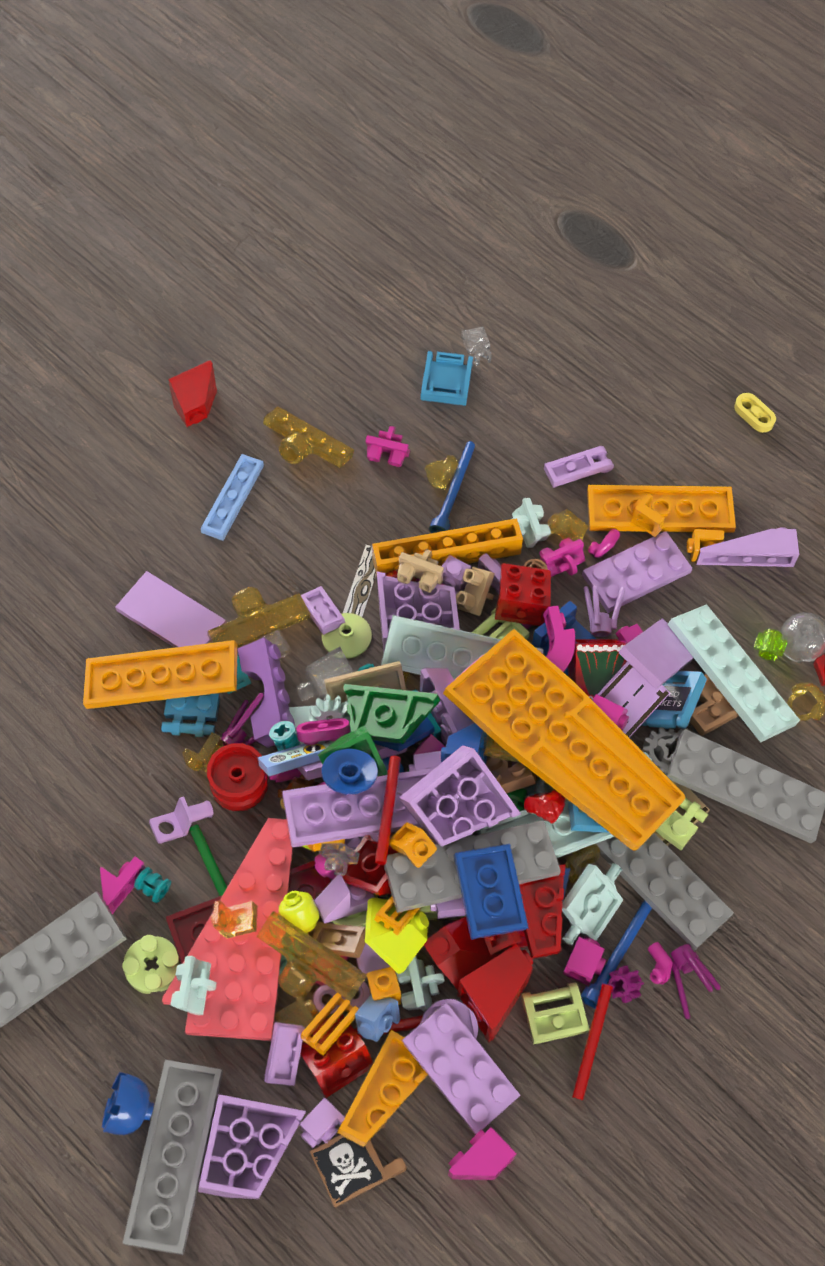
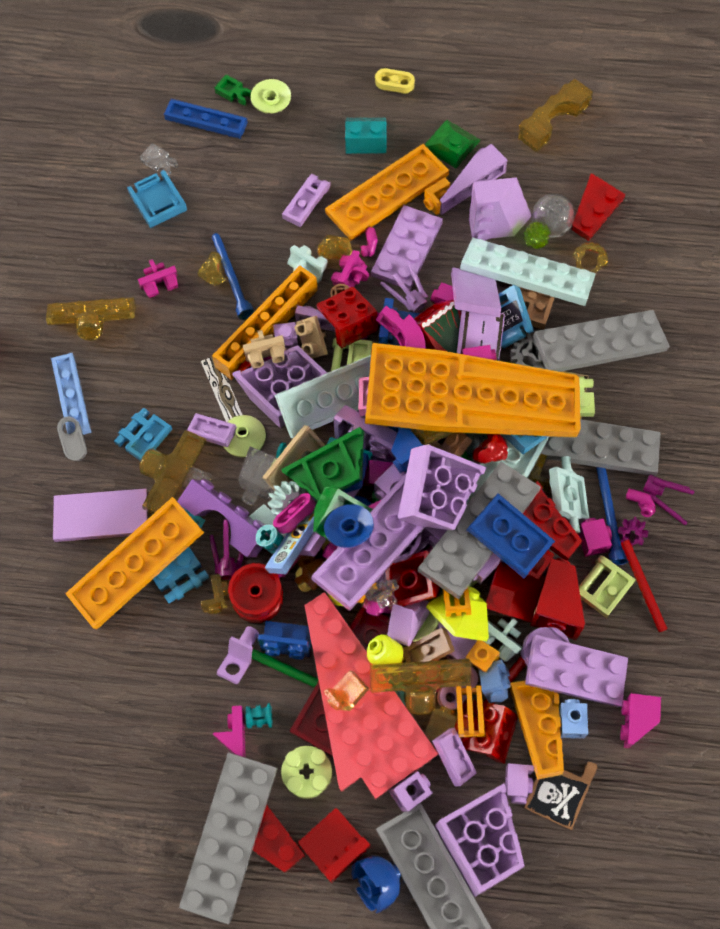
camera: 35 degrees left, 5 degrees up
(75, 1003) = (276, 844): none -> red wing
(119, 1045) = (334, 845): none -> red bracket
(194, 985) = (359, 760): light aqua hips -> none
(199, 539) = (74, 443): none -> light grey piece
(211, 1052) = (421, 791): none -> lavender brick
(229, 835) = (285, 639): none -> blue bracket
(266, 577) = (148, 437): none -> dark azure plate
(387, 811) = (395, 533): red bar -> none
(413, 843) = (432, 542): light orange bracket -> none
(420, 1108) = (573, 719): none -> light blue brick
(549, 335) = (205, 118): none -> blue plate
(594, 323) = (231, 88): none -> green plate
(624, 352) = (270, 96): none -> yellowish green dish
(647, 518) = (386, 202): light orange bracket -> none
(684, 444) = (365, 135): none -> teal slope
(748, 593) = (497, 209): none -> lavender wedge
(762, 506) = (451, 144): none -> green slope

